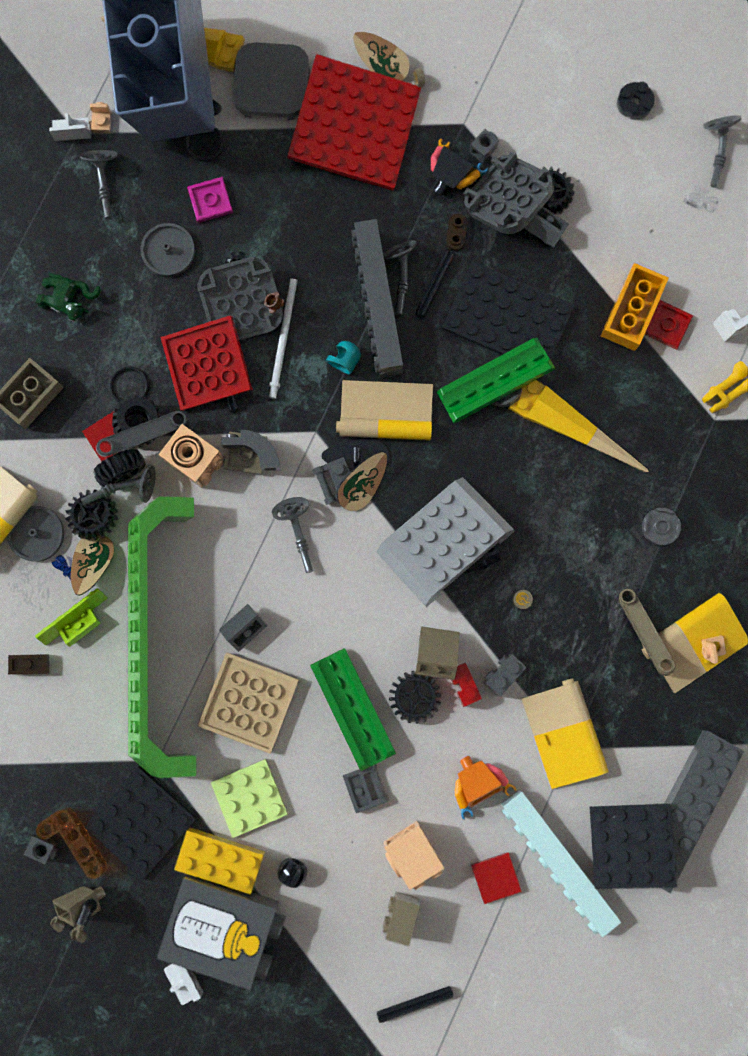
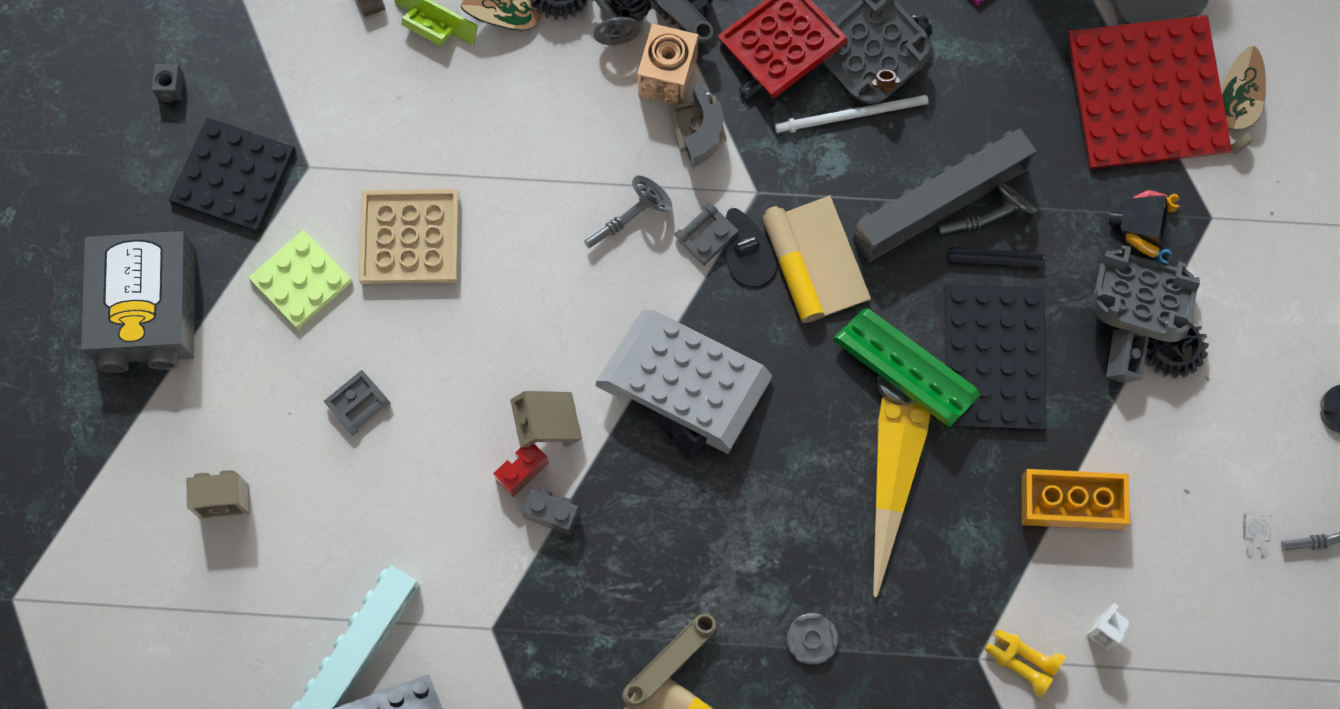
camera: 70 degrees right, 10 degrees down
(74, 845) = (162, 141): clear orange beam -> none
(76, 910) = (114, 138): dark tan torso -> none
(140, 747) = (563, 40): bright green arch -> none
(183, 983) = (67, 288): white panel -> none
(219, 860) = (217, 272): yellow brick -> none
(243, 627) = (492, 195): dark grey brick -> none
(292, 872) = (230, 355): black piece -> none
(347, 357) = (859, 192): teal helmet -> none
(353, 709) = (443, 352): green plate -> none
(362, 482) = (716, 261): shield -> none
(413, 856) = (295, 482): light nougat brick -> none
(415, 1004) = (123, 554): black axle -> none
(431, 701) = (475, 418): black gear -> none
(456, 231) = (1073, 259): dark brown plate -> none
(478, 783) = (408, 528): orange torso -> none
(480, 152) = (1185, 252): dark grey brick -> none
(496, 878) = (303, 594): red tile -> none
(522, 599) = (652, 502): dark tan tile -> none
(565, 734) = (506, 612): door -> none
(668, 324) = (1074, 554): red tile -> none

